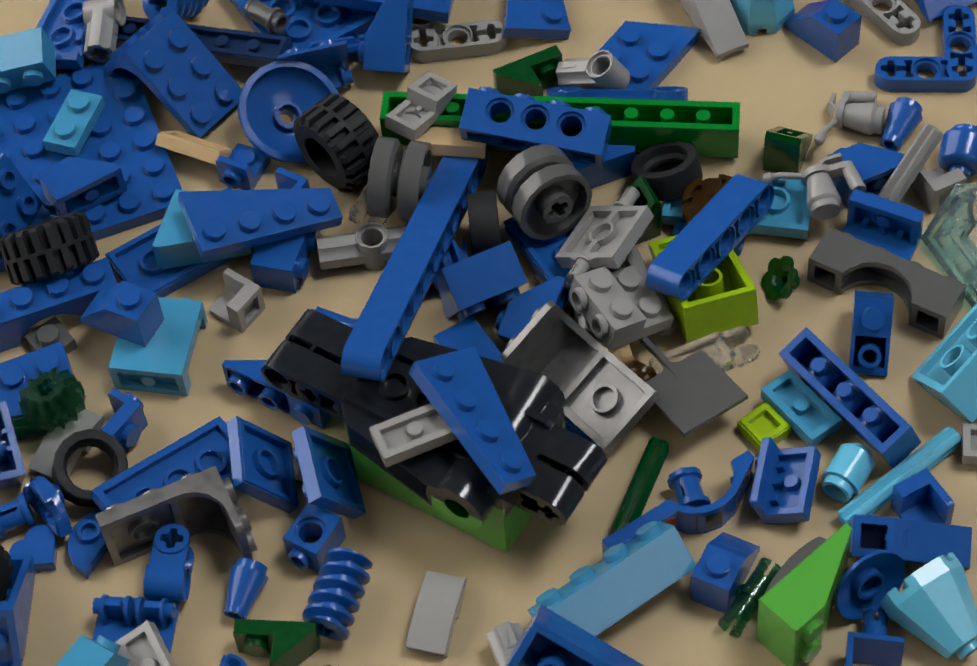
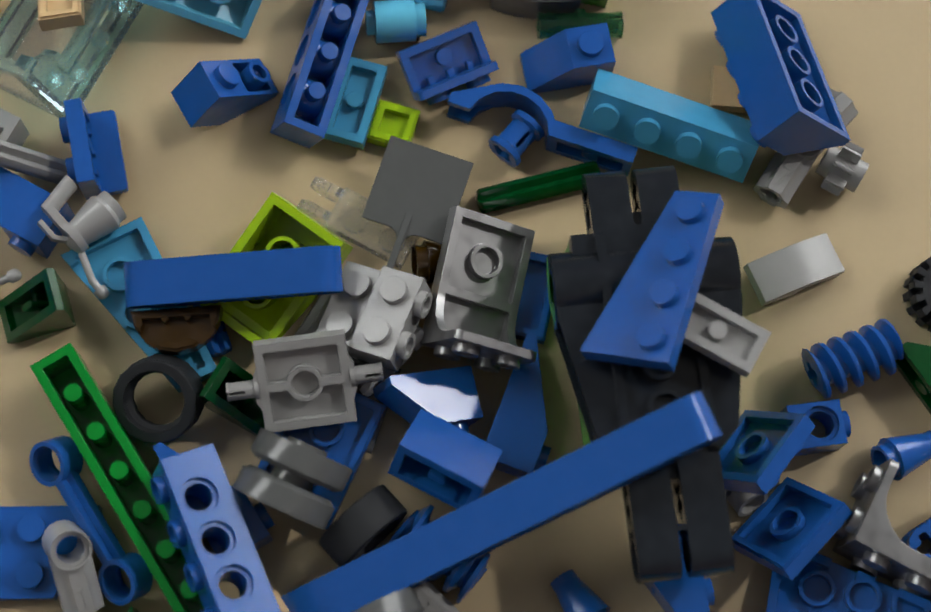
camera: 140 degrees left, 20 degrees up
(780, 278) = (217, 209): dark green plant -> none
(847, 262) = (151, 63): dark grey arch -> none

